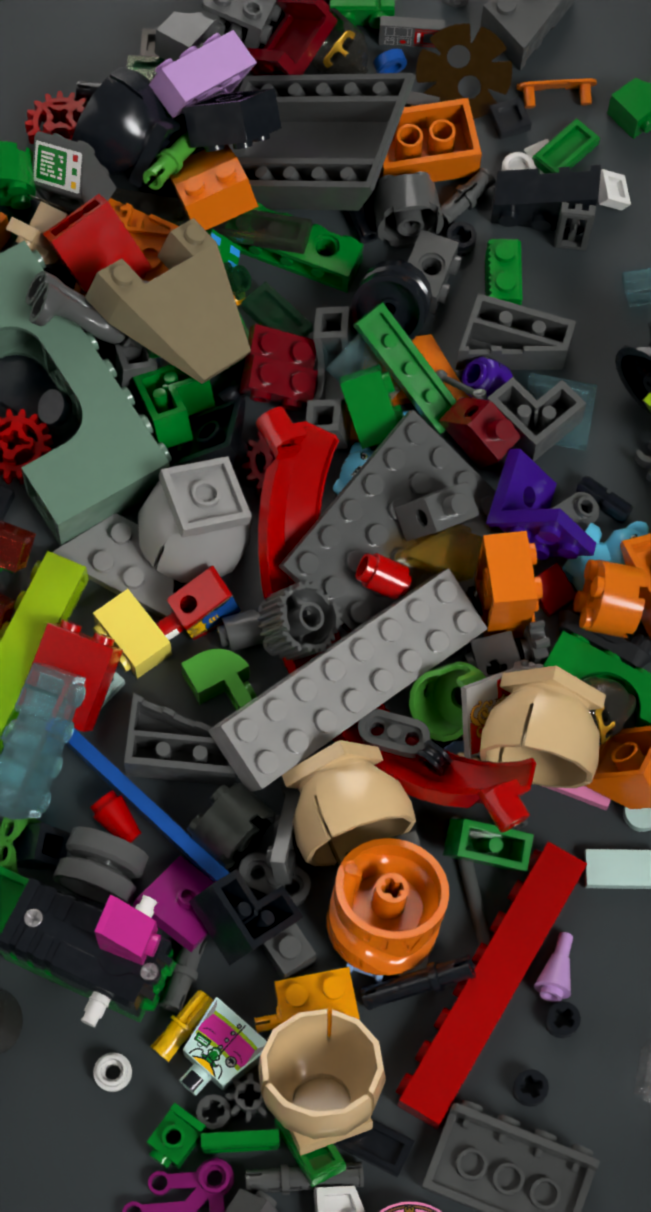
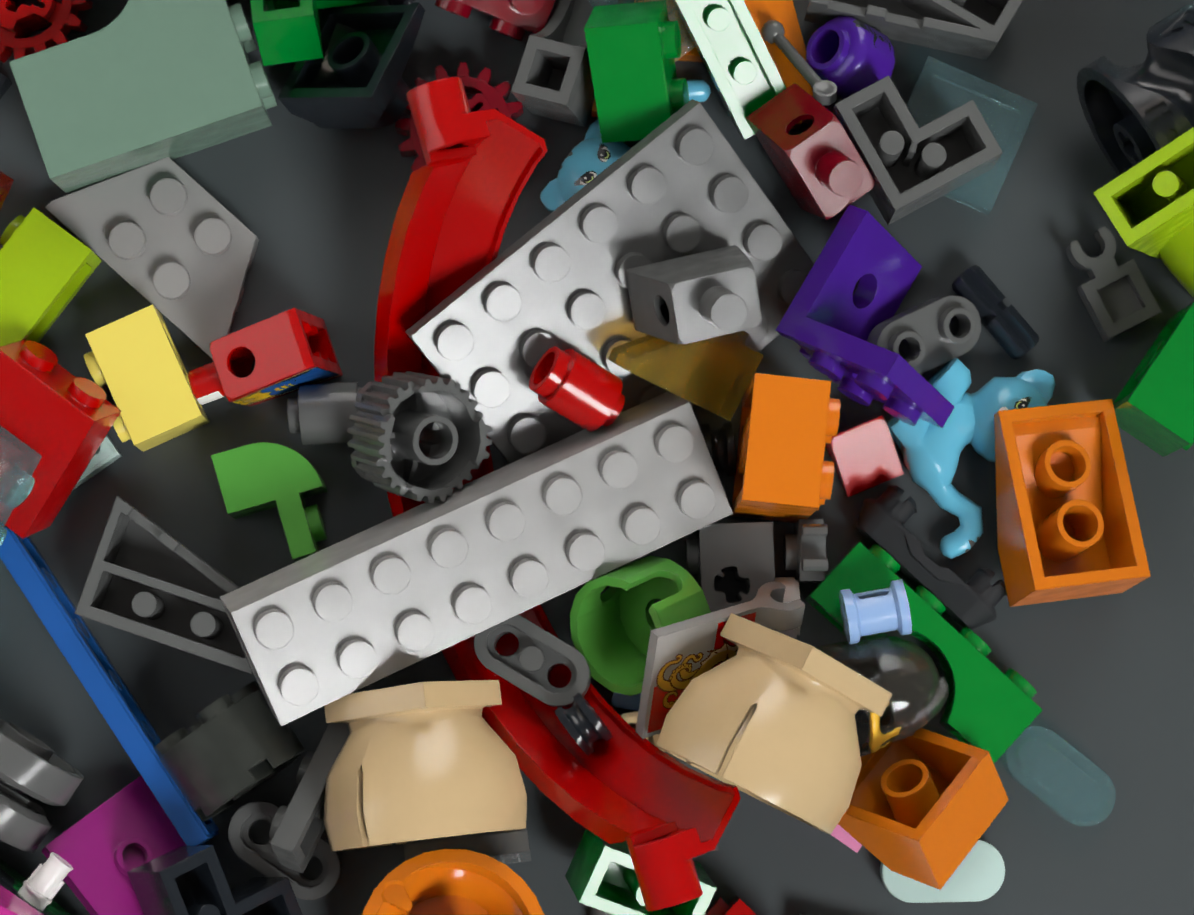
camera: 10 degrees right, 15 degrees up
(115, 816) = (52, 689): red cone -> none
(197, 519) = (289, 215): light grey plate -> none
(584, 660) = (875, 611): none -> light blue bush
(610, 598) = (951, 512): orange brick -> none

